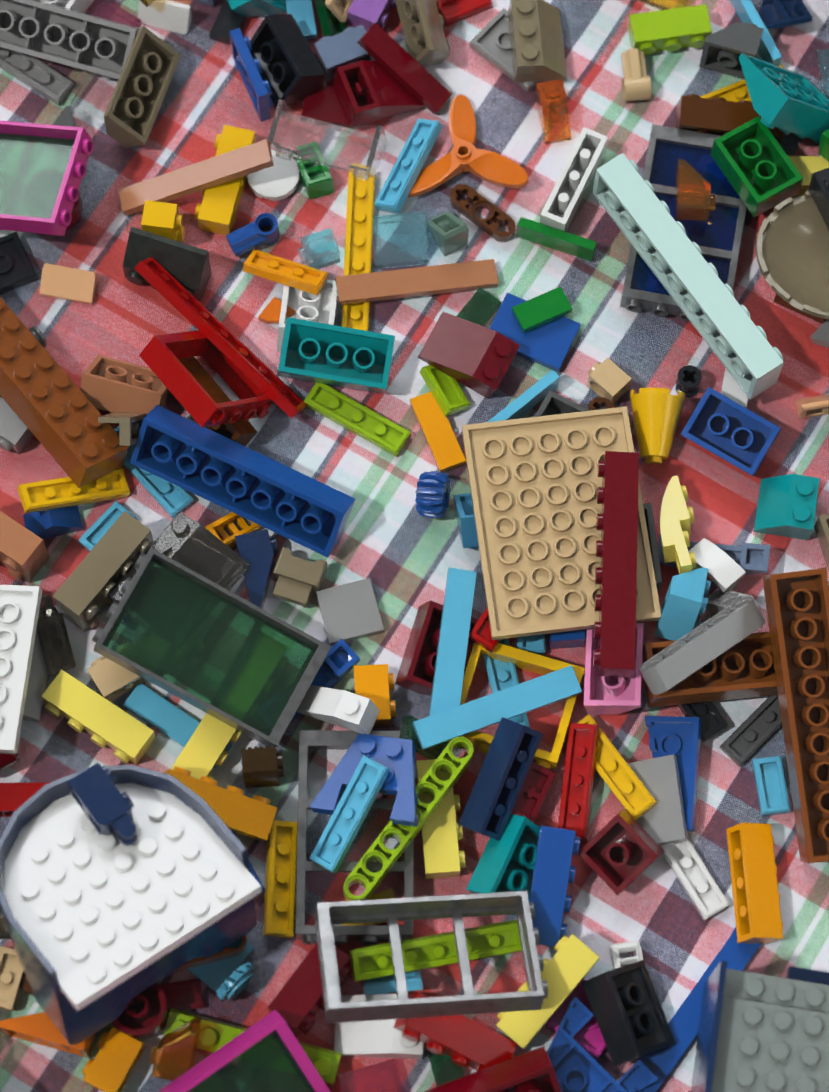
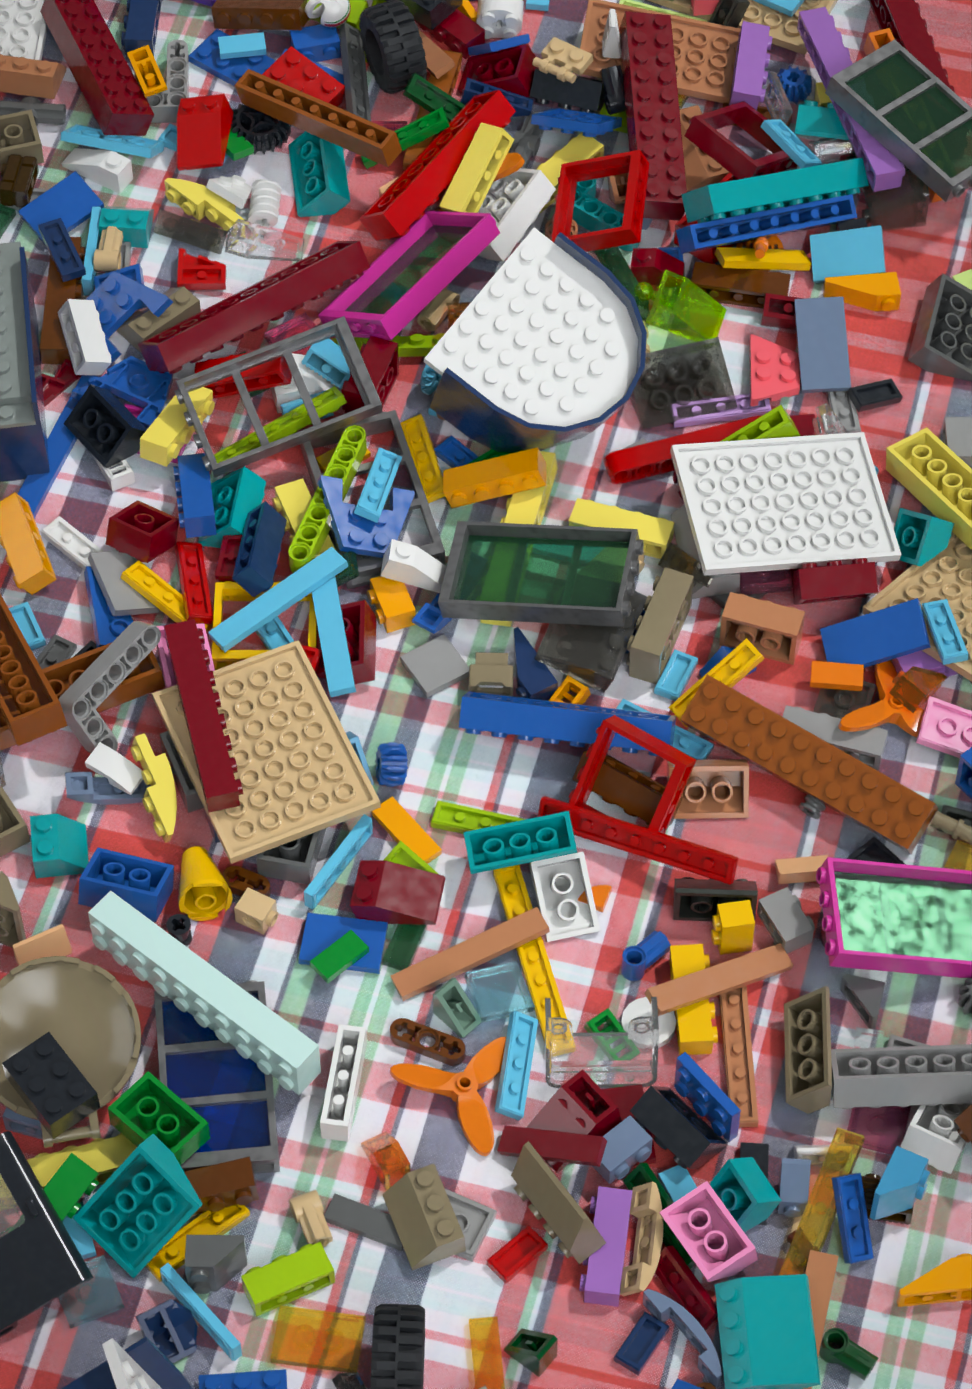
camera: 165 degrees right, 15 degrees down
(104, 804) = (573, 384): dark blue hinge -> none
(108, 230) = (785, 920): none -> light grey brick
(128, 425) = (693, 731): dark tan panel -> none
(206, 115) = (738, 1054): none -> nougat tile
(262, 767) = (466, 507): dark brown brick -> none
(285, 272) = (600, 928): light orange tile -> none
(319, 249) = (575, 957): clear light blue brick -> none
(351, 1039) = (328, 361): none -> medium azure brick
(556, 239) = (326, 1028): green tile -> none
(590, 70) = (362, 1221): none -> dark grey tile
(683, 604) = (135, 717): medium azure slope -> none
(692, 194) = (218, 1085): clear orange slope -> none

